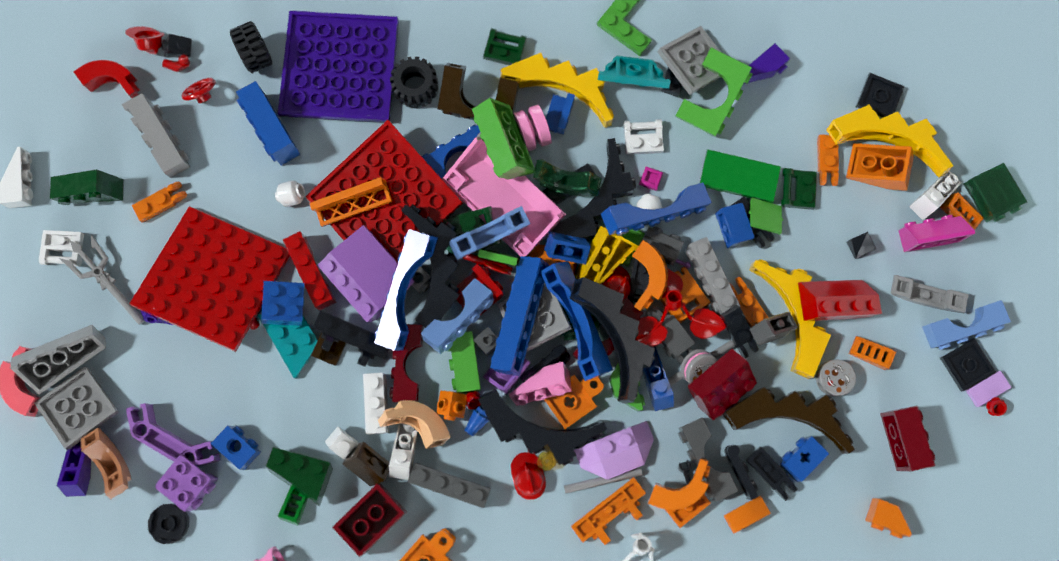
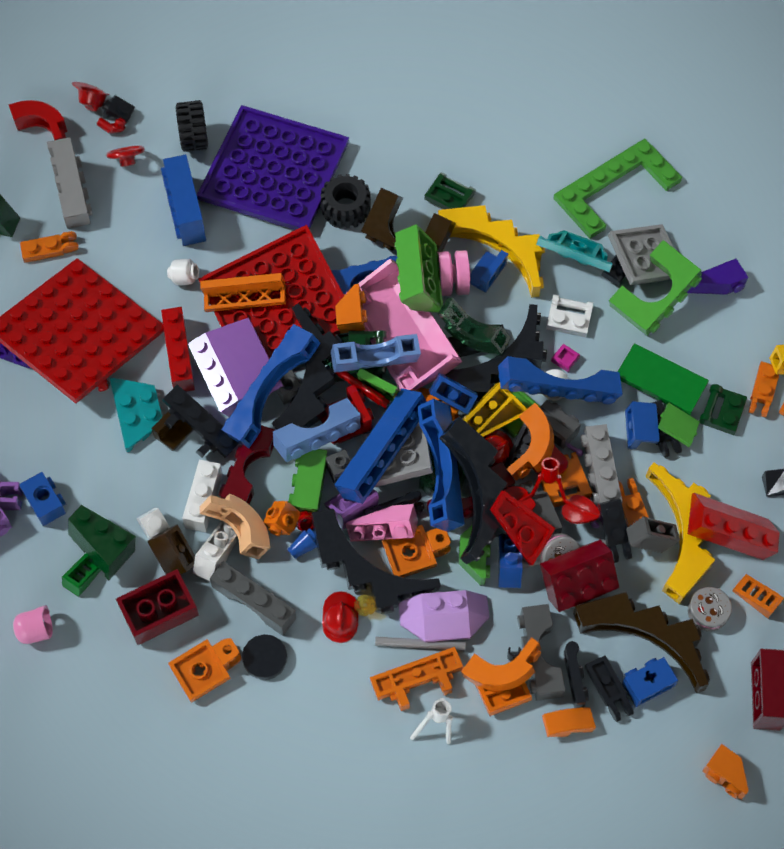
camera: 15 degrees right, 15 degrees down
(282, 303) = (140, 368): blue brick -> none
(454, 197) = (350, 311): none -> orange slope
(475, 532) = (264, 657): none -> black tile
(664, 357) = (522, 525): none -> red wing

